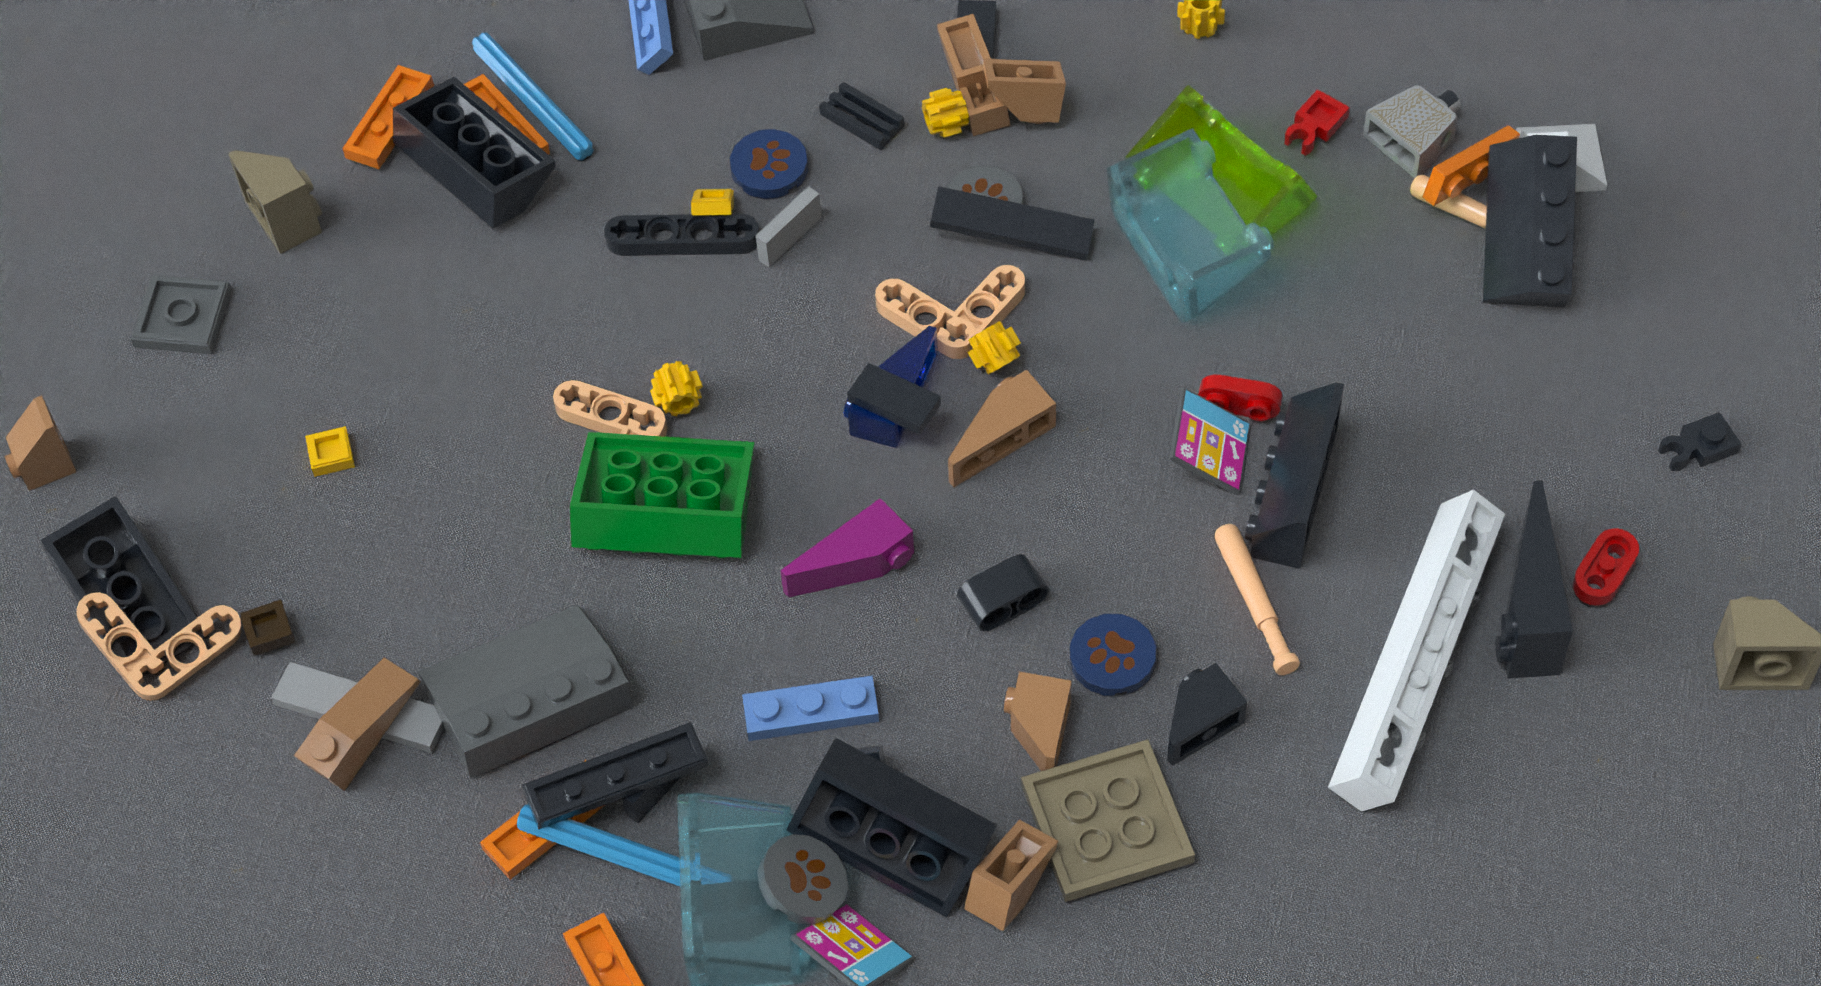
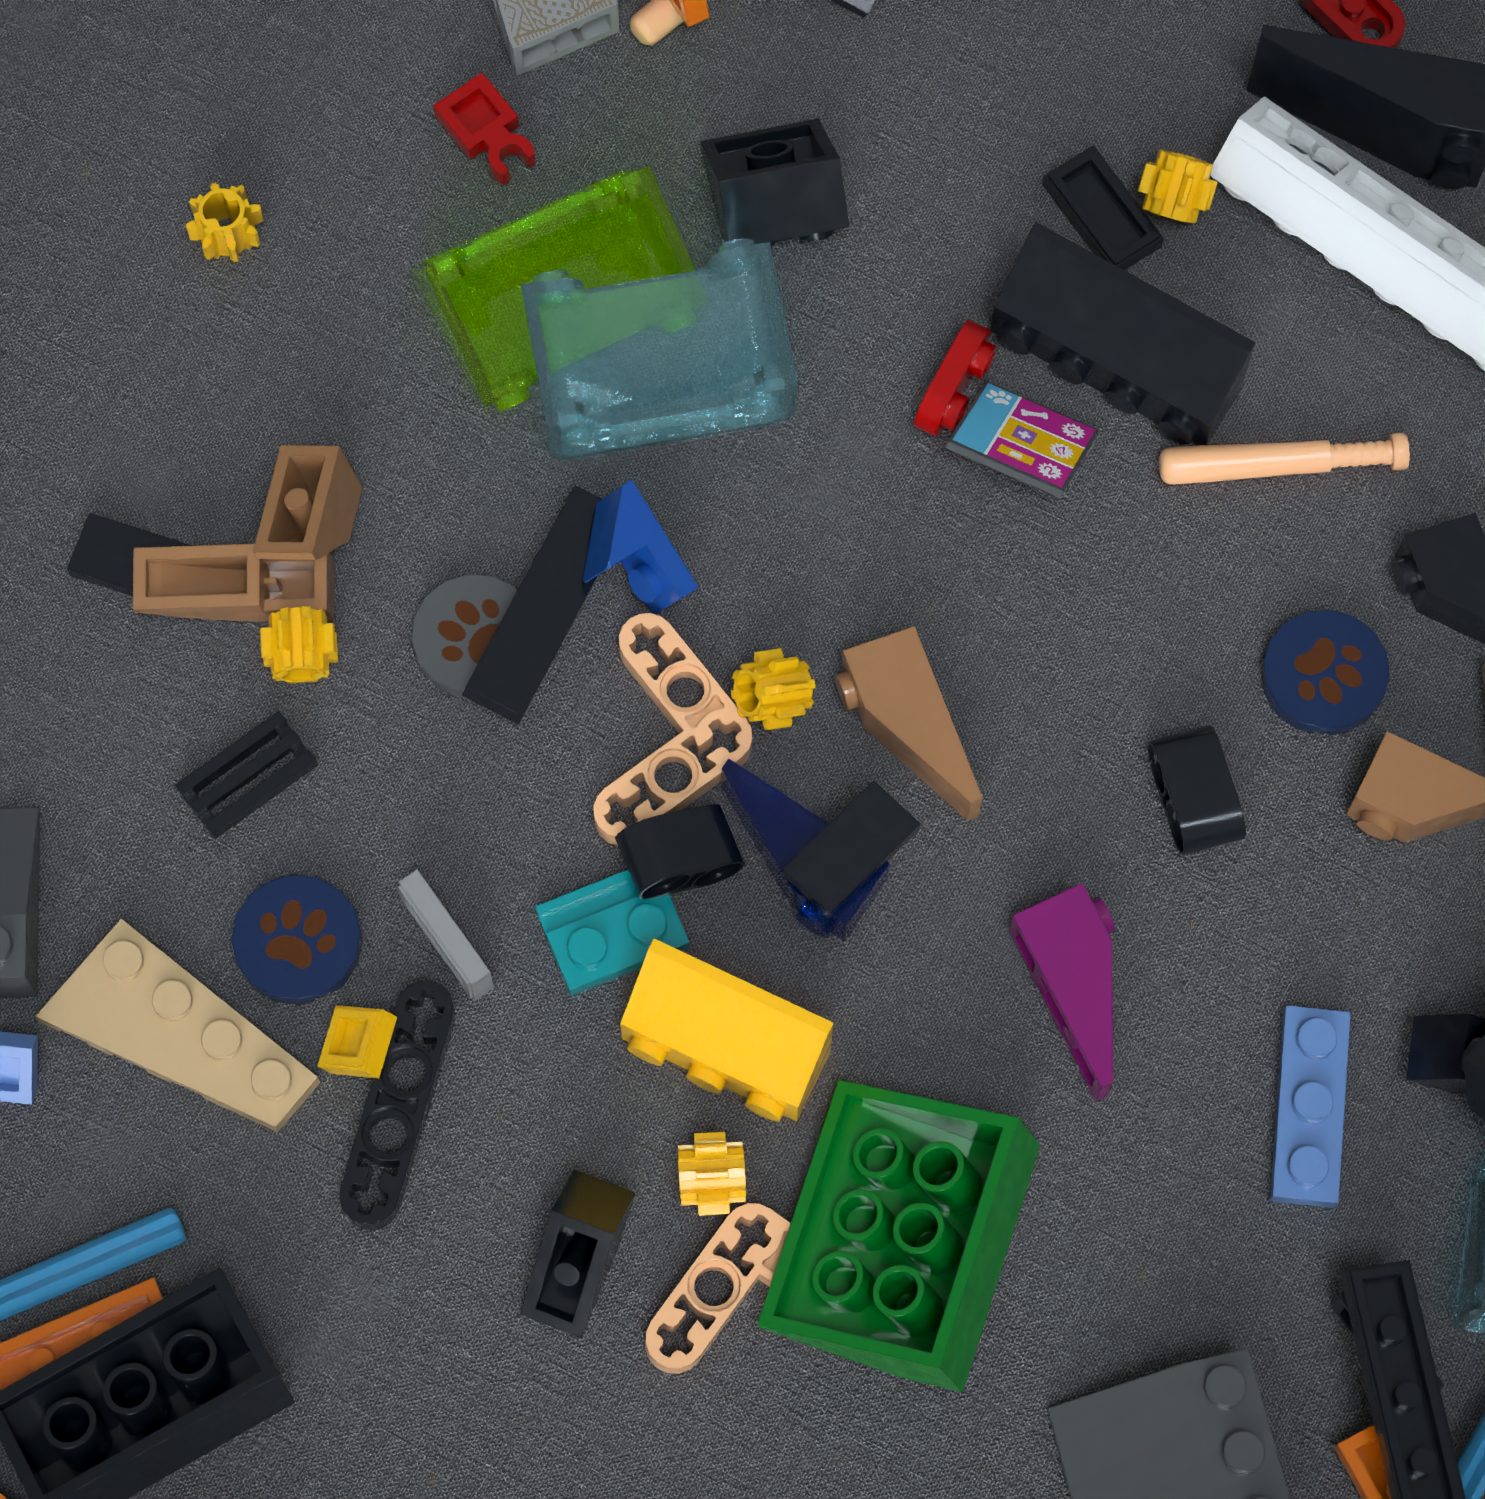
camera: 80 degrees left, 15 degrees up
(614, 335) = (577, 1252): none -> black slope
(699, 123) = (161, 1018): none -> tan wing
(763, 373) = (725, 1032): none -> yellow slope
(821, 312) = (606, 930): none -> teal plate
(872, 323) = (679, 851): none -> black beam
(1063, 243) = (630, 534): none -> blue slope
(1335, 272) = (776, 183): none -> black slope
(1395, 459) = (1102, 209): none -> black tile
(1424, 487) = (1177, 186): none -> yellow gear

